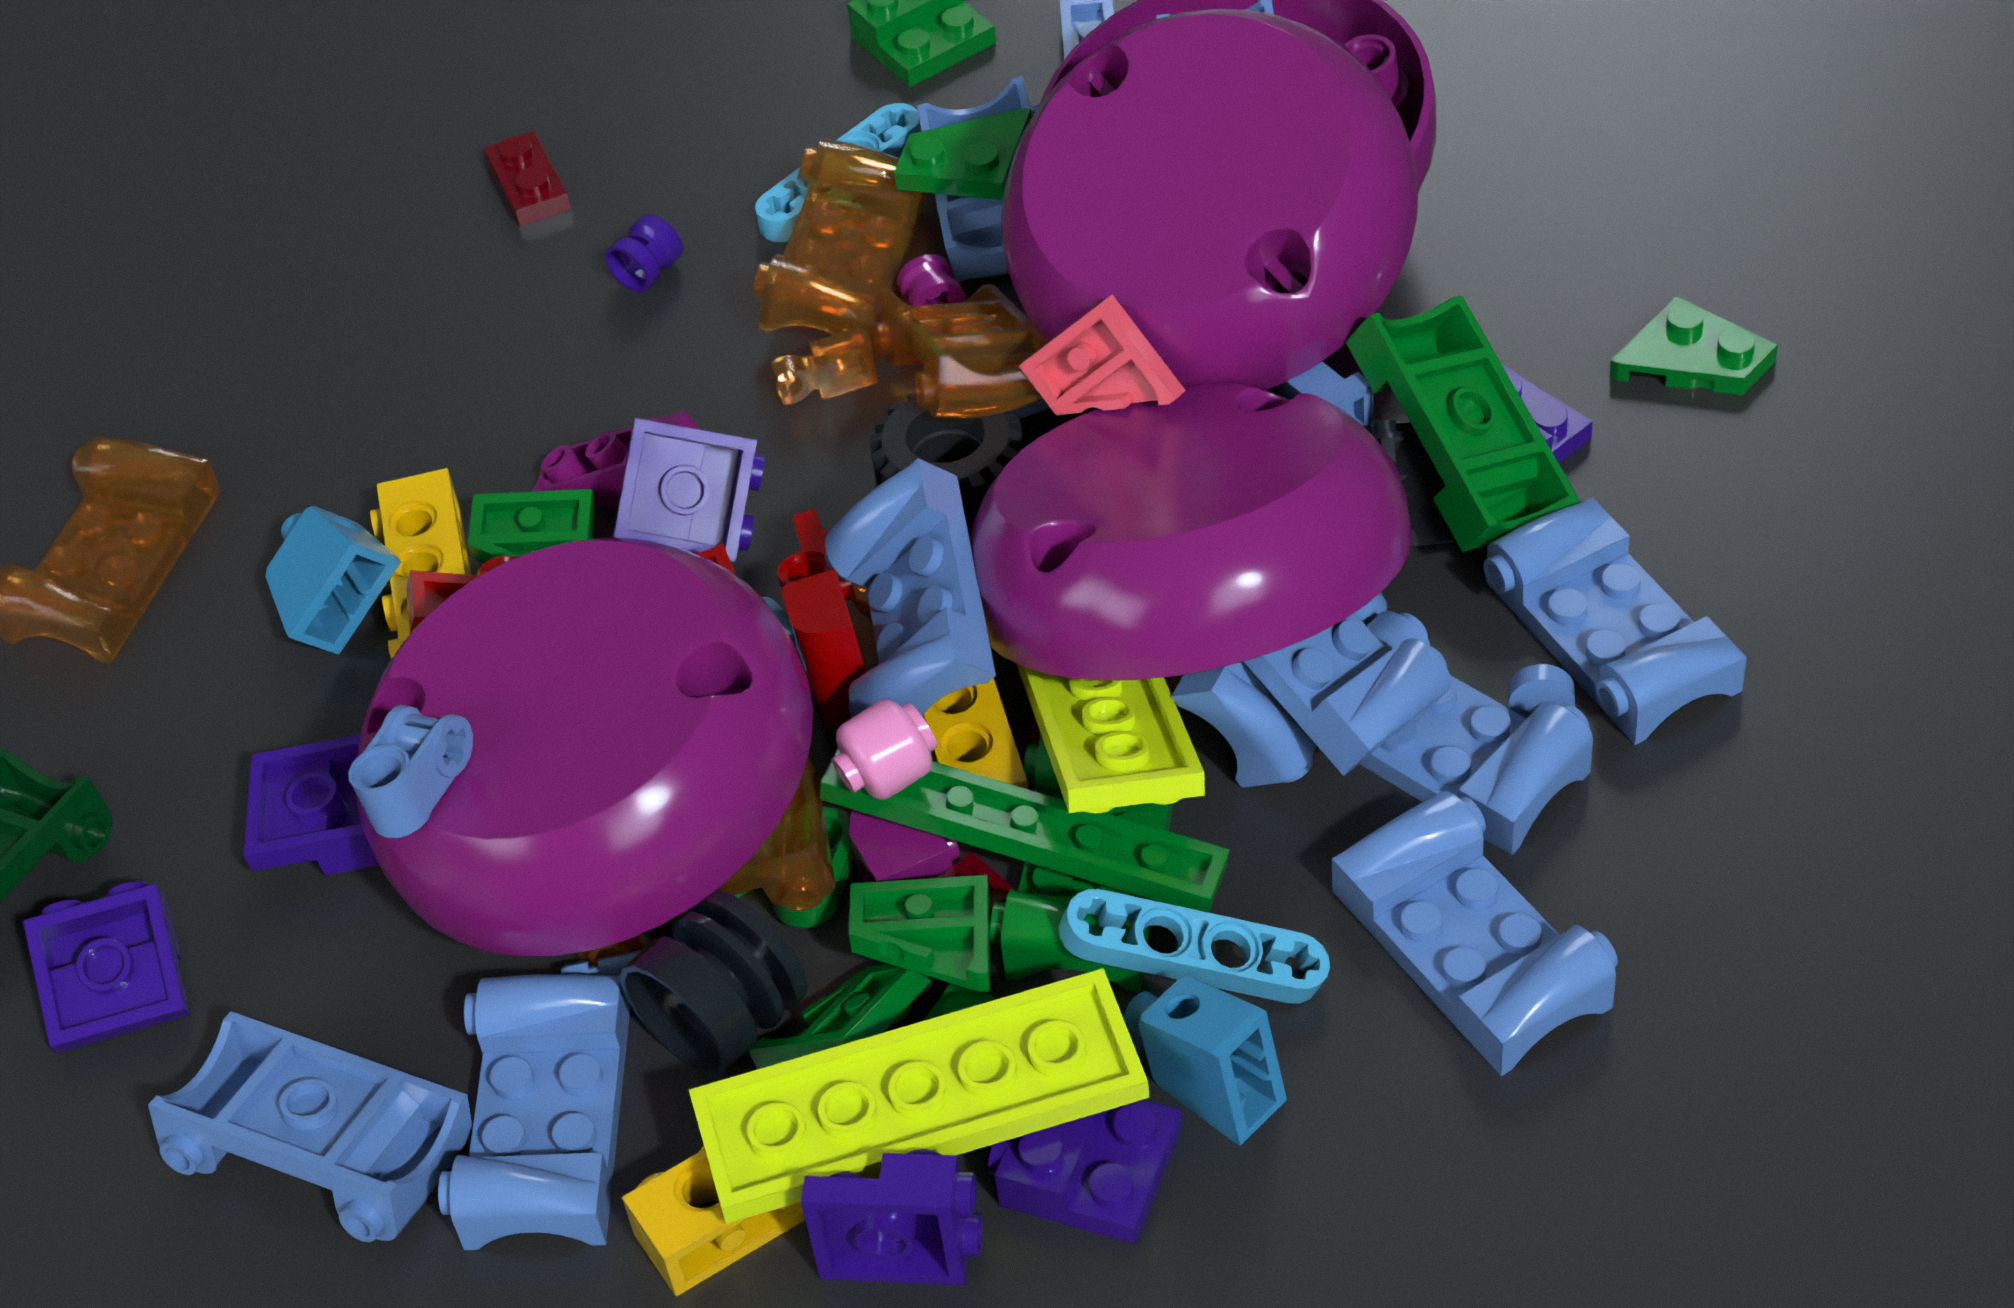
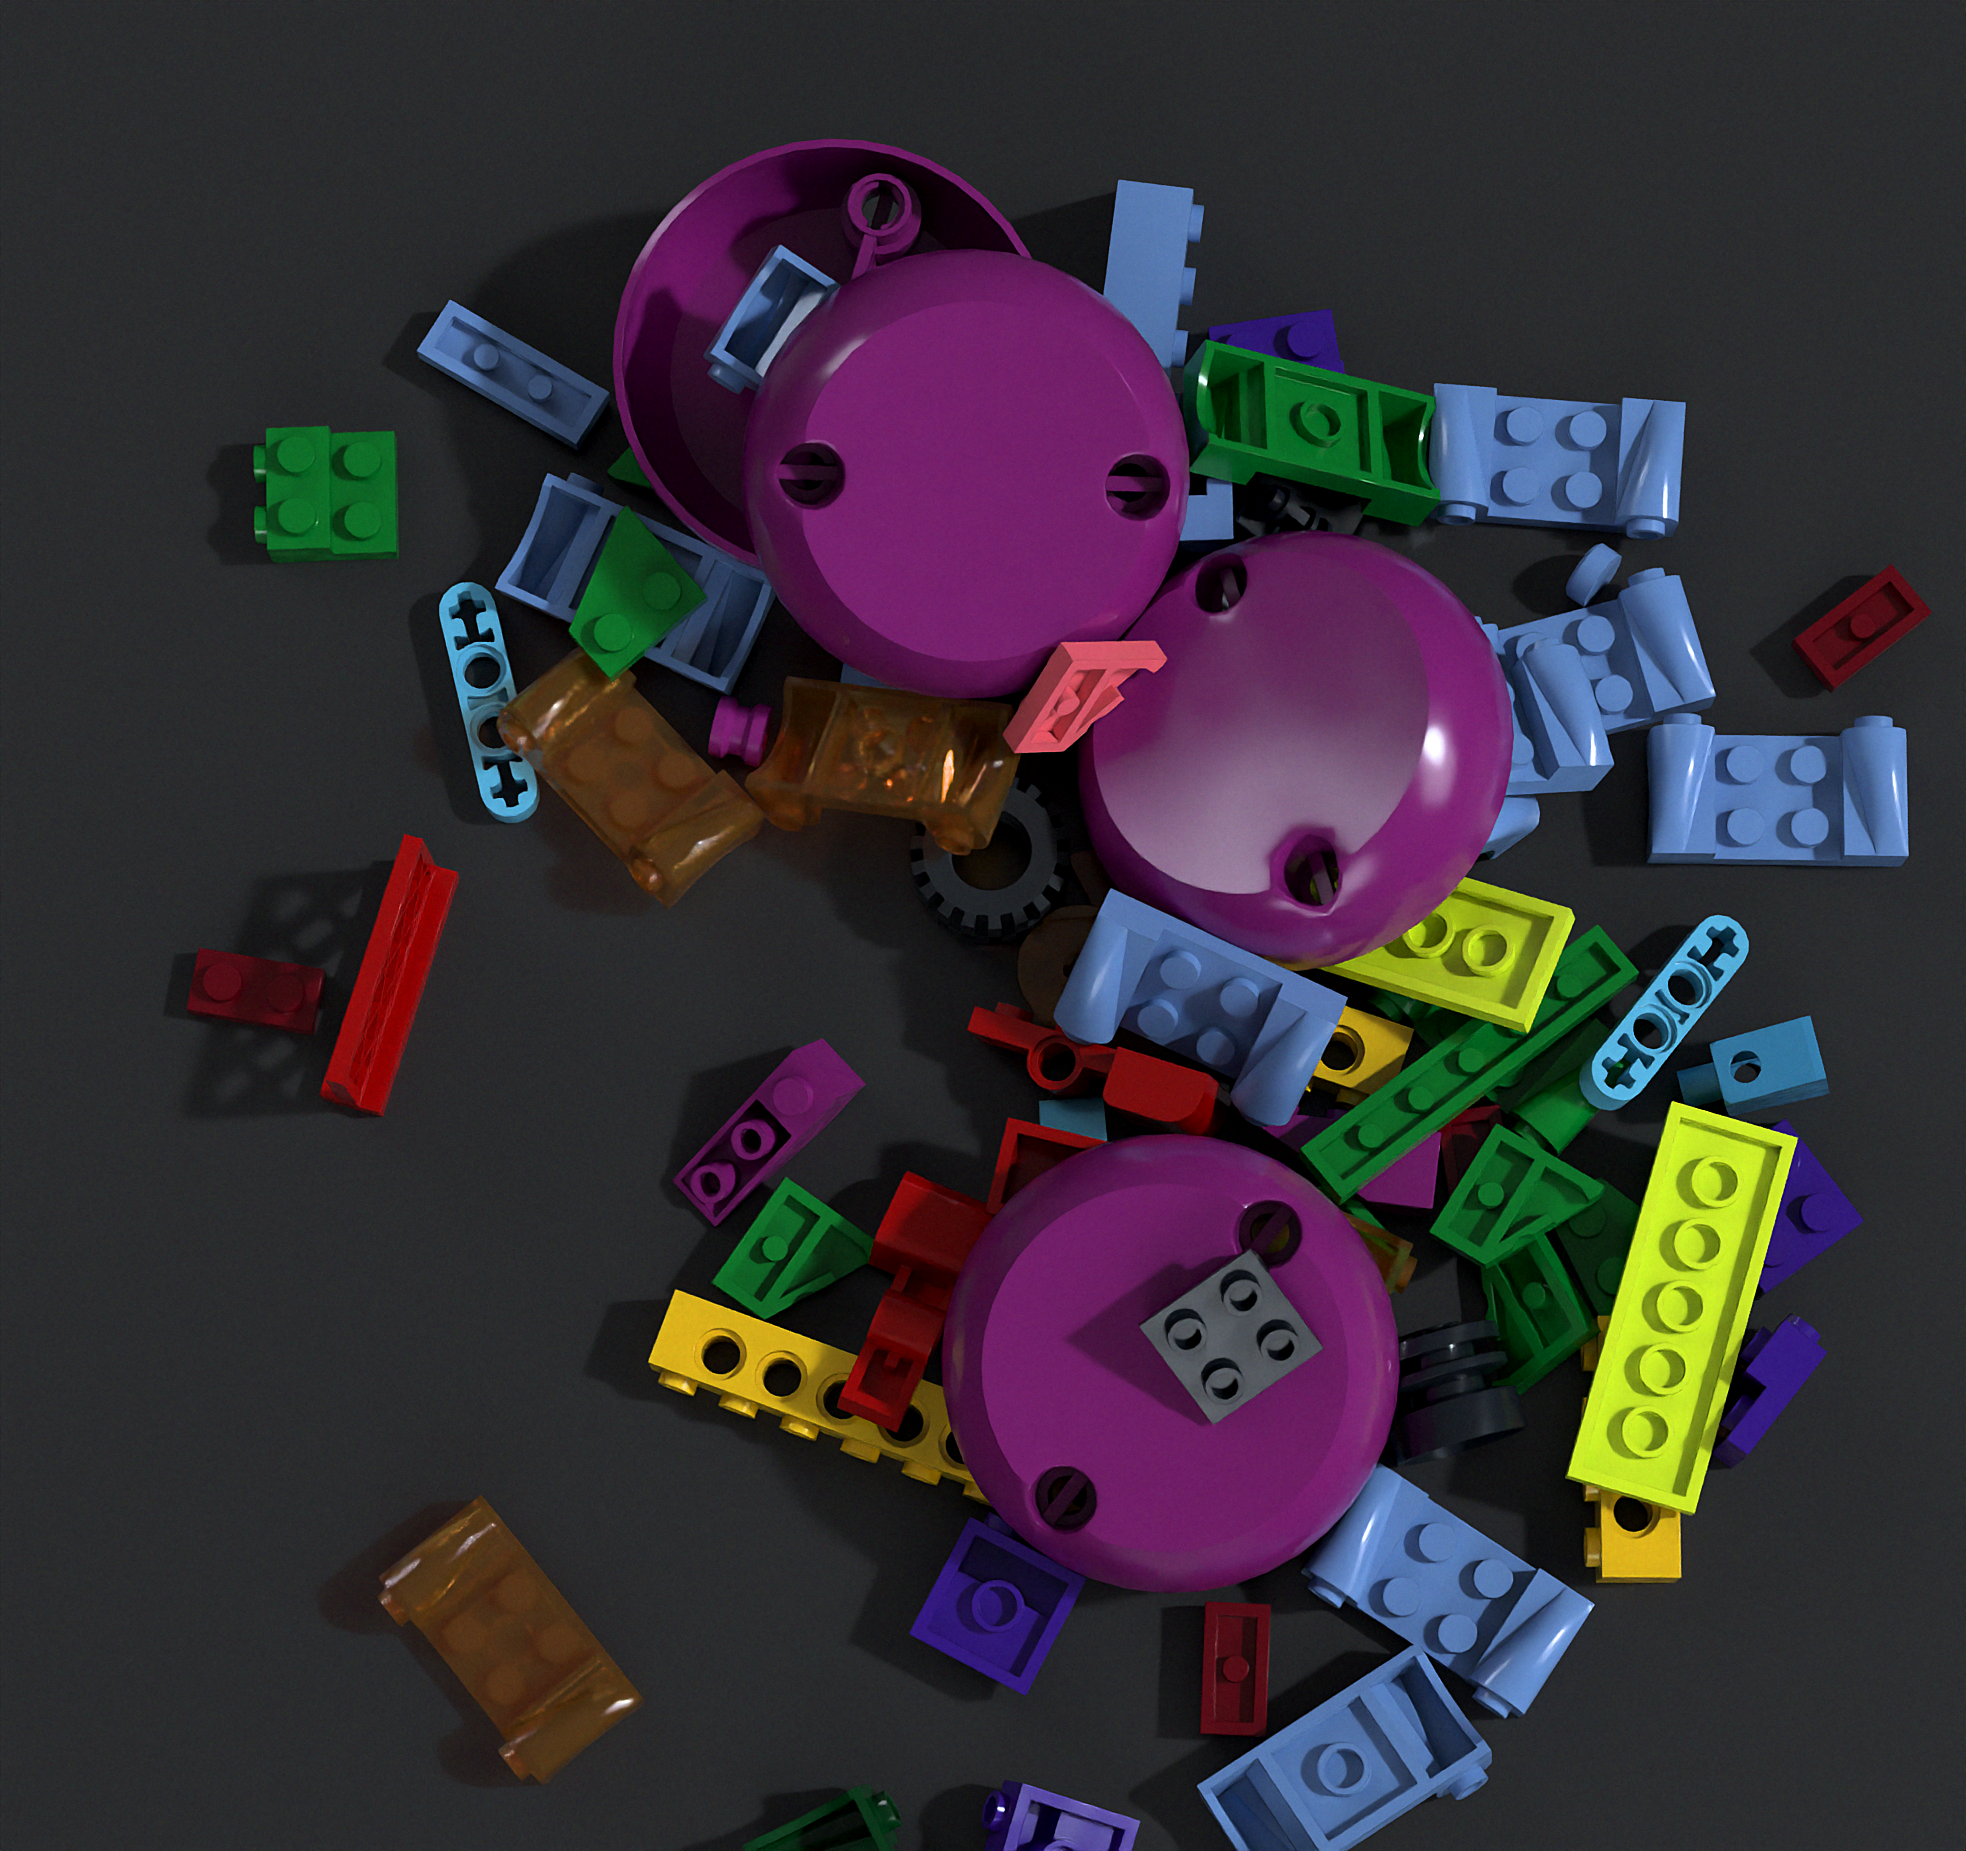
camera: 60 degrees left, 30 degrees up
(327, 577) = (725, 1461): dark azure torso -> none
(369, 999) = (1235, 1669): none -> dark red plate
(405, 769) = (1177, 1519): medium blue piece -> none
(583, 230) = (390, 980): none -> red fence
(599, 687) = (1231, 1335): none -> black hinge
(638, 258) = (479, 949): dark purple wheel -> none
(688, 488) = (886, 1101): plate -> none
(834, 367) = (771, 866): clear orange plate -> none
(884, 749) = (1365, 1133): bright pink head -> none
(1516, 279) = (1148, 260): none -> medium blue wedge
(1682, 904) = (1861, 628): none -> dark red plate
(1696, 351) = (1305, 160): wing -> none

